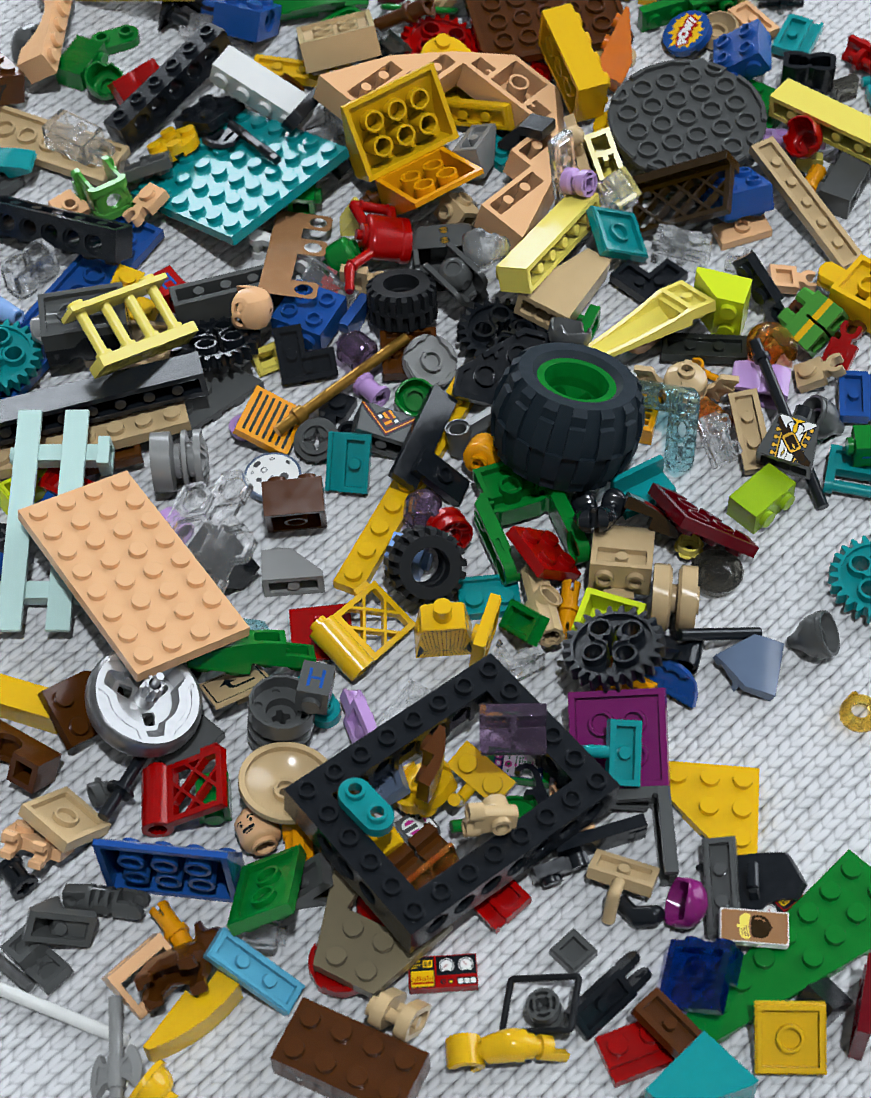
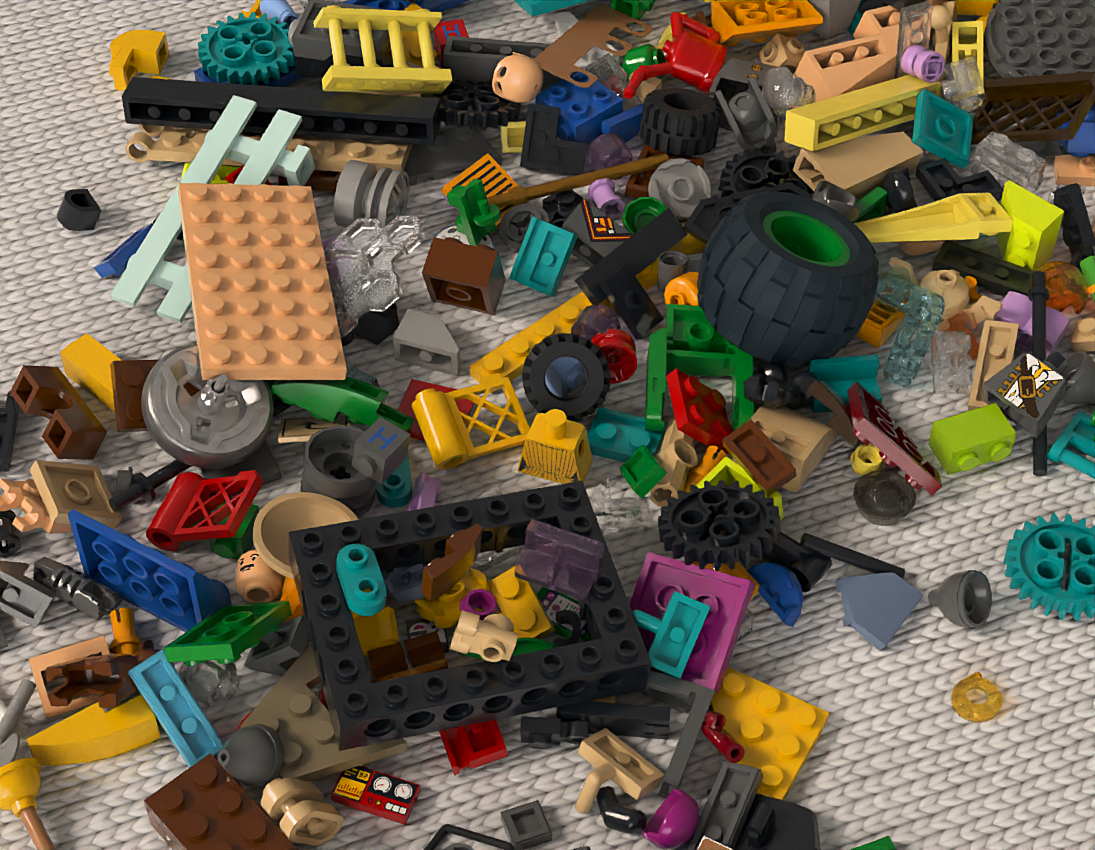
camera: 20 degrees right, 5 degrees down
(274, 442) = (475, 214): none -> green hips
(339, 983) = (253, 755): none -> dark grey helmet
(471, 786) = (479, 599): none -> magenta plate
(484, 632) = (599, 460): yellow plate -> none
(611, 304) = (899, 189): none -> black hair
(617, 579) = (759, 457): none -> reddish brown plate
(675, 598) = (817, 500): tan wheel -> none
(691, 822) = (721, 739): none -> dark red arm

